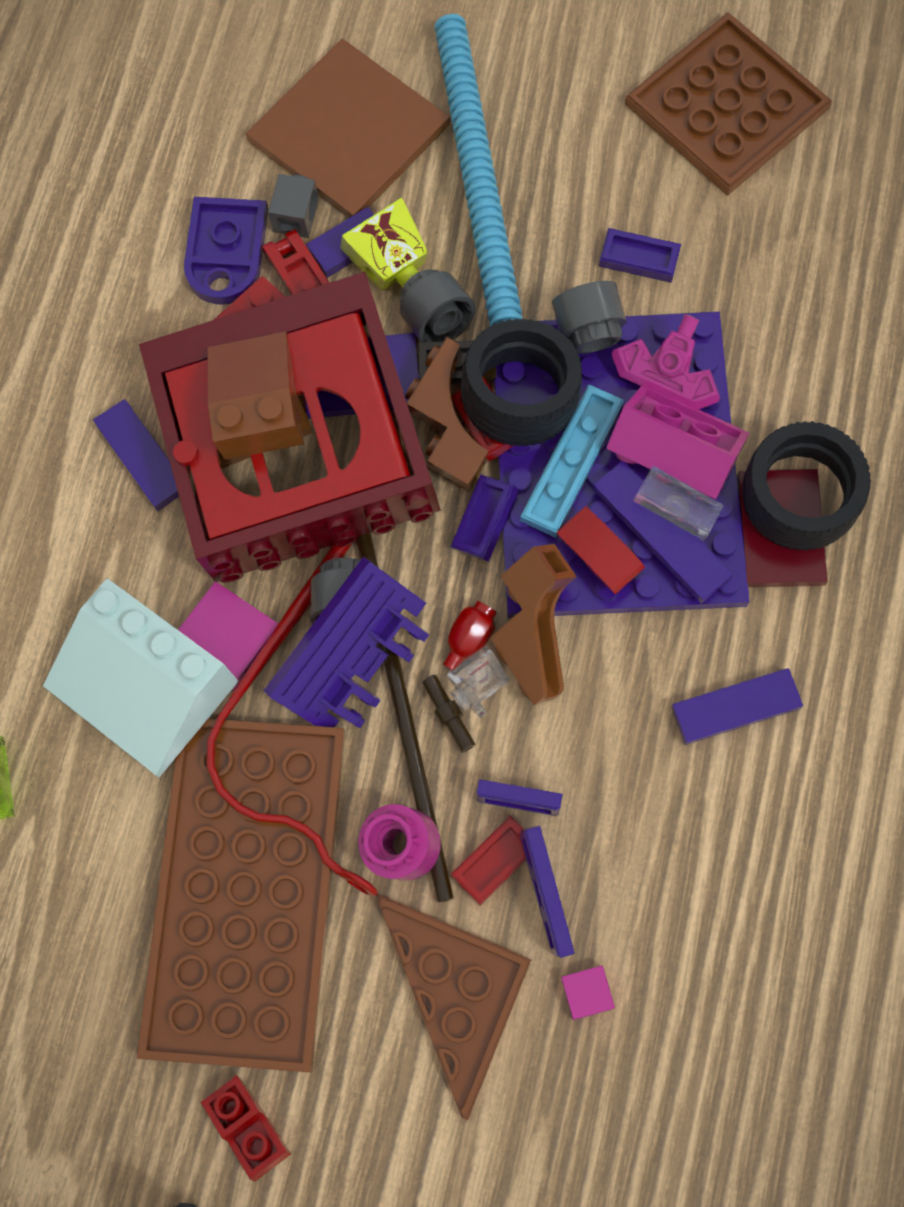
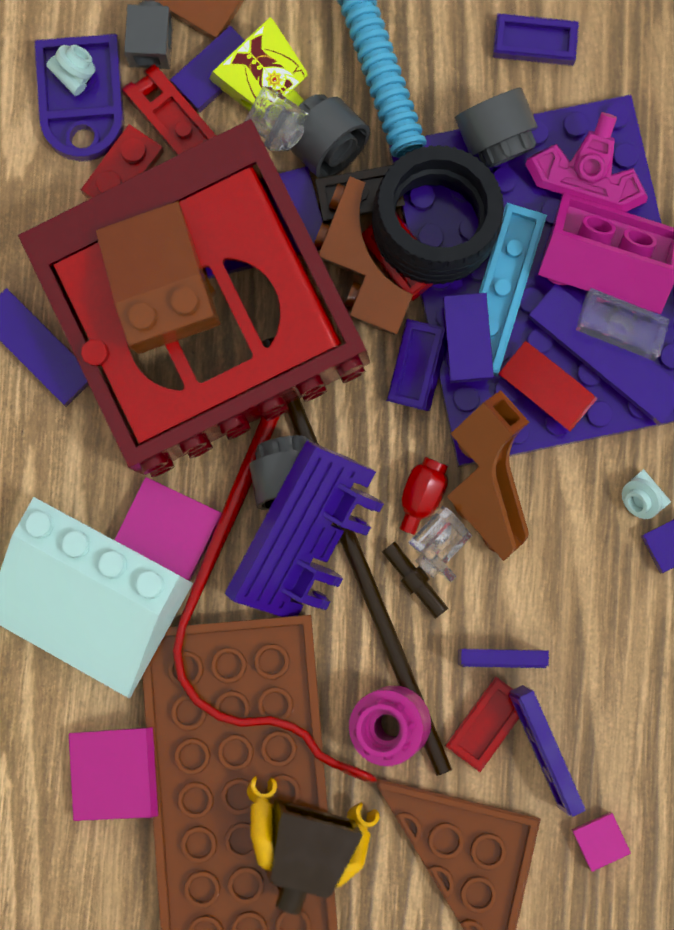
camera: 15 degrees left, 10 degrees up
(129, 848) = (113, 774): none -> dark pink tile
(220, 220) = (72, 67): none -> light aqua plate
(295, 942) = (306, 847): none -> dark brown torso
(391, 282) = (277, 119): none -> clear bracket
(532, 495) = (468, 337): none -> dark purple tile
(679, 669) = (644, 496): none -> light aqua plate

